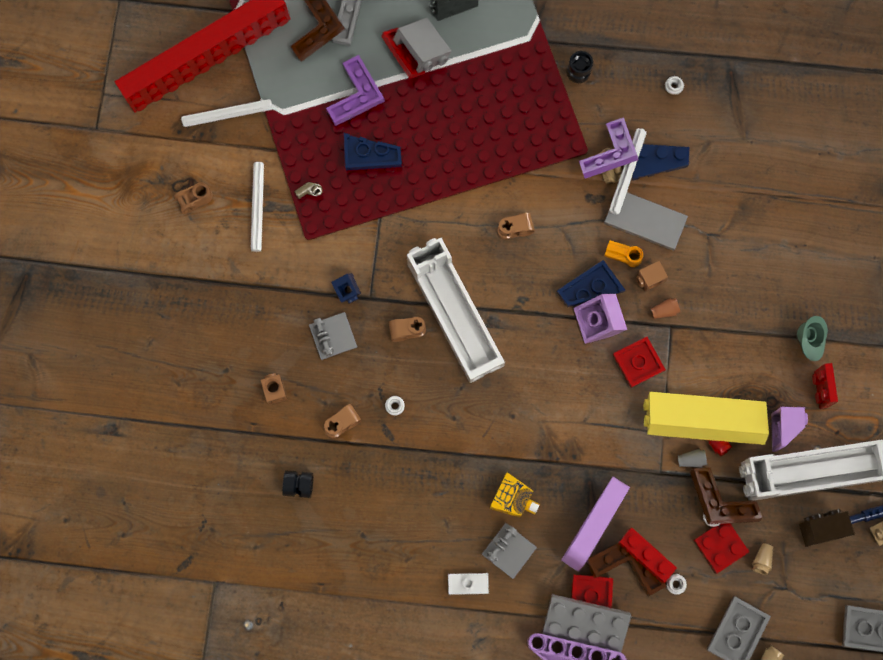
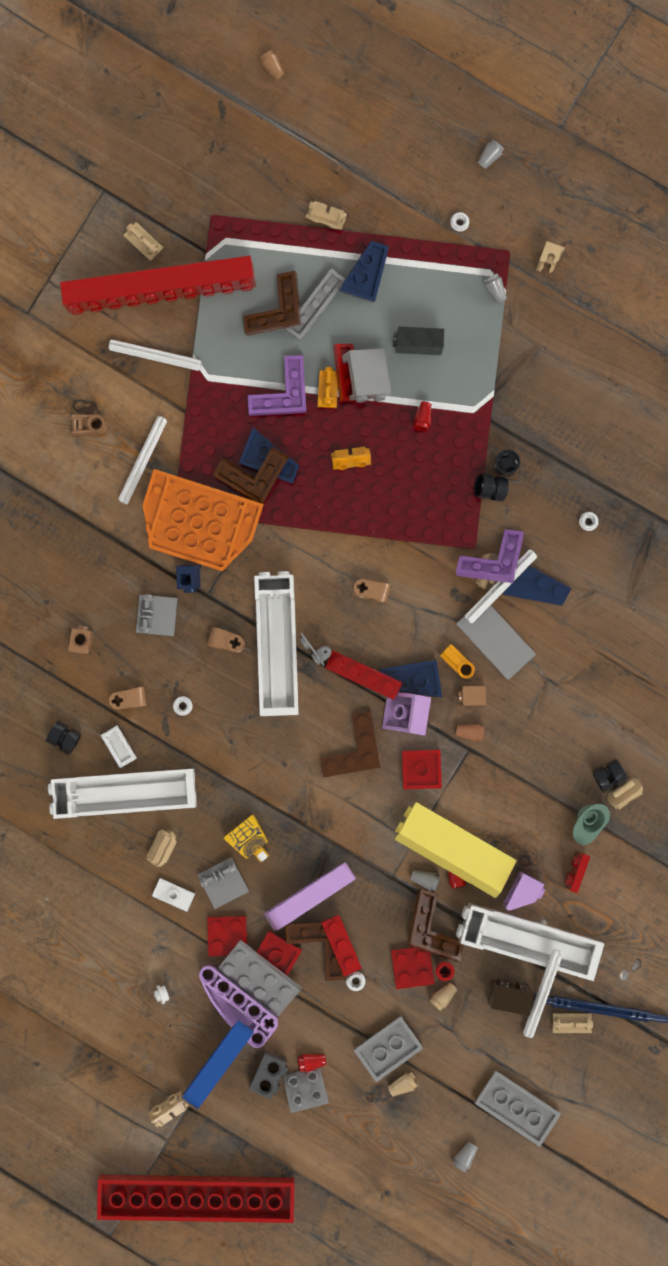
camera: 25 degrees right, 10 degrees up
(172, 24) = (142, 241): none -> tan hinge
(309, 188) = (196, 465): dark tan arm -> none
(332, 234) = (198, 520): none -> orange plate
(353, 469) = (118, 746): none -> white plate
(369, 183) = (253, 487): none -> reddish brown plate
(376, 509) = (122, 793): none -> white brick
(393, 73) = (327, 388): none -> light orange hinge
(437, 544) = (162, 848): none -> tan piece
(449, 118) = (359, 458): none -> light orange hinge
(489, 62) = (422, 419): none -> red cone
(498, 302) = (320, 655): none -> light grey hinge
(534, 598) = (225, 933): none -> red plate
(546, 302) = (363, 675): none -> red plate
(577, 92) = (491, 488): none -> black wheel
(583, 373) = (367, 754): none -> reddish brown plate
(758, 533) = (445, 976): none -> red cone
(807, 289) = (616, 774): none -> black wheel
(828, 300) = (625, 793): none -> tan piece
(853, 510) = (543, 993): none -> white axle

